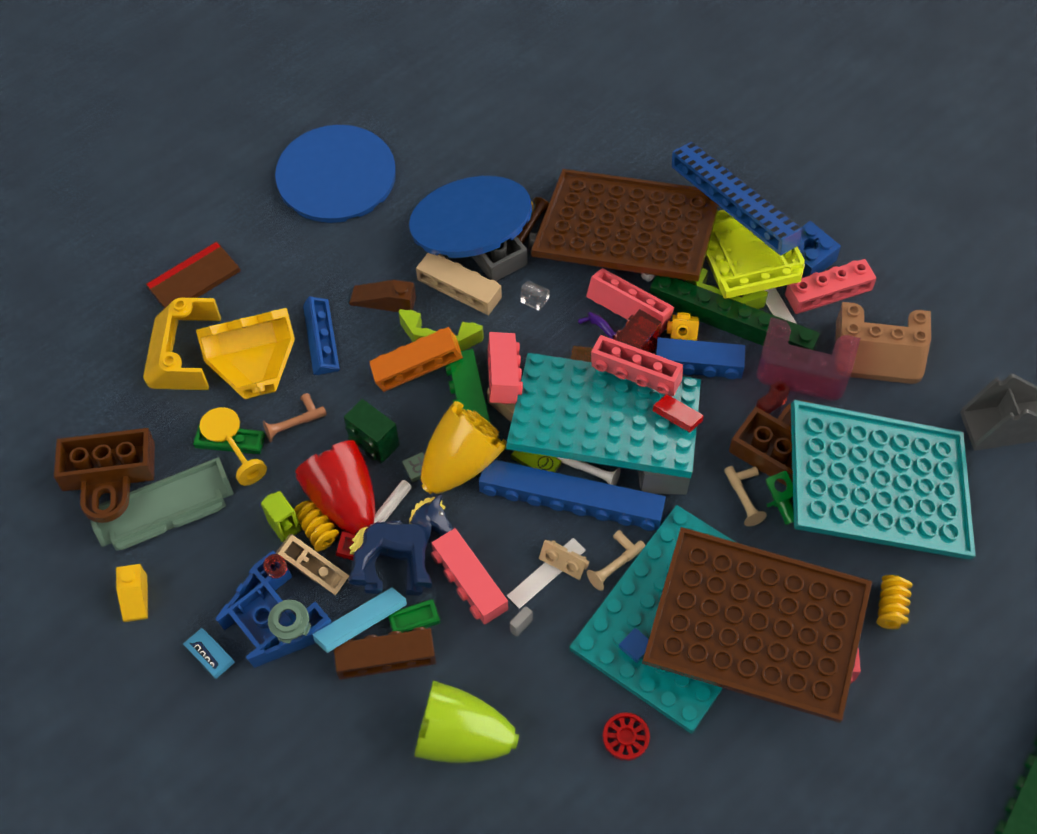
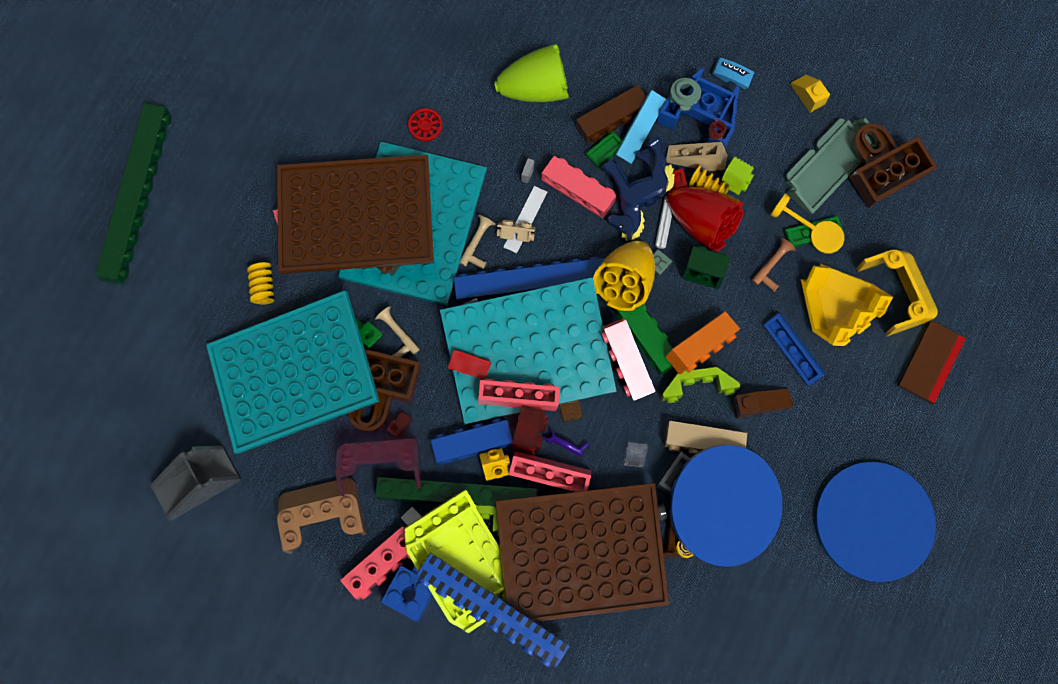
camera: 155 degrees right, 15 degrees up
(634, 645) = (439, 179): blue tile -> none

